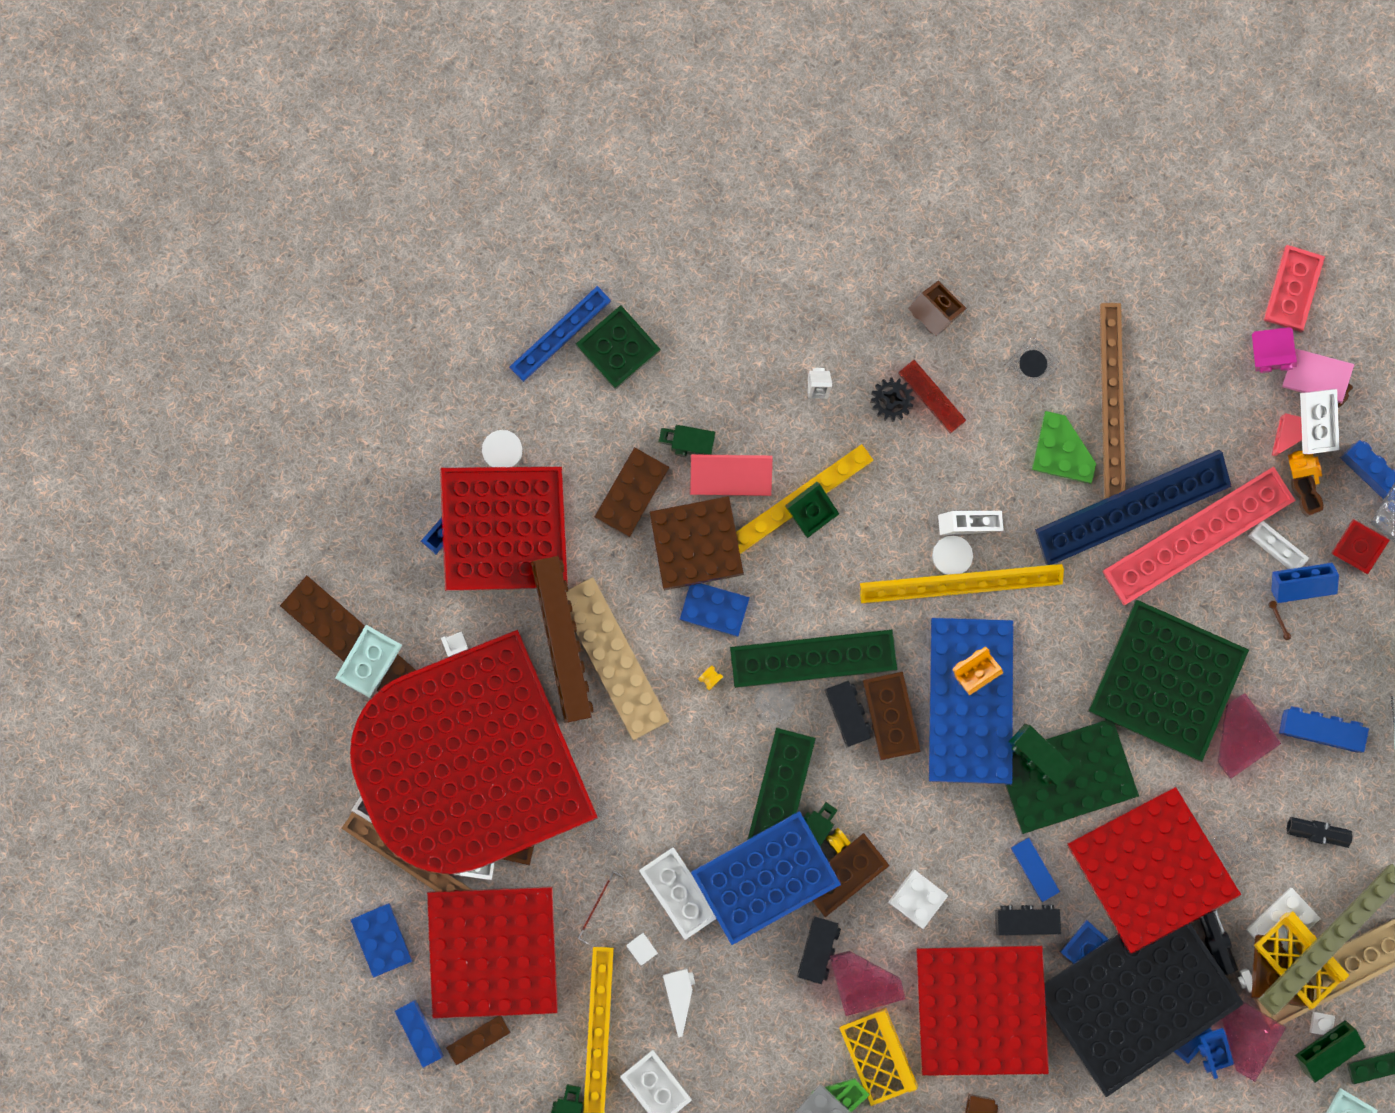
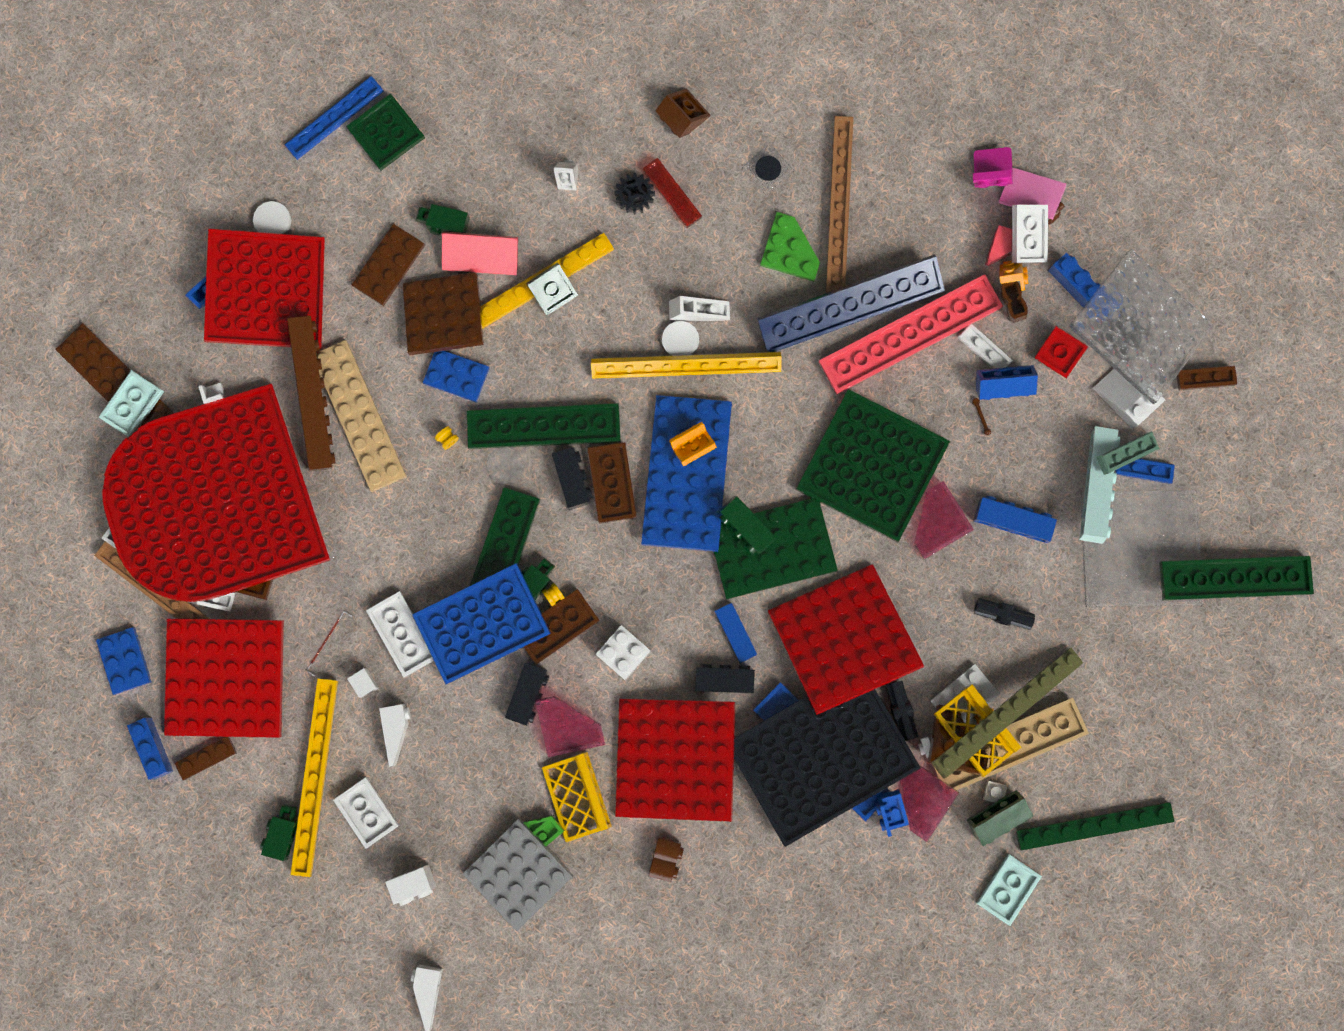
camera: 10 degrees right, 0 degrees up
(1294, 288) = (1016, 113): coral tile -> none

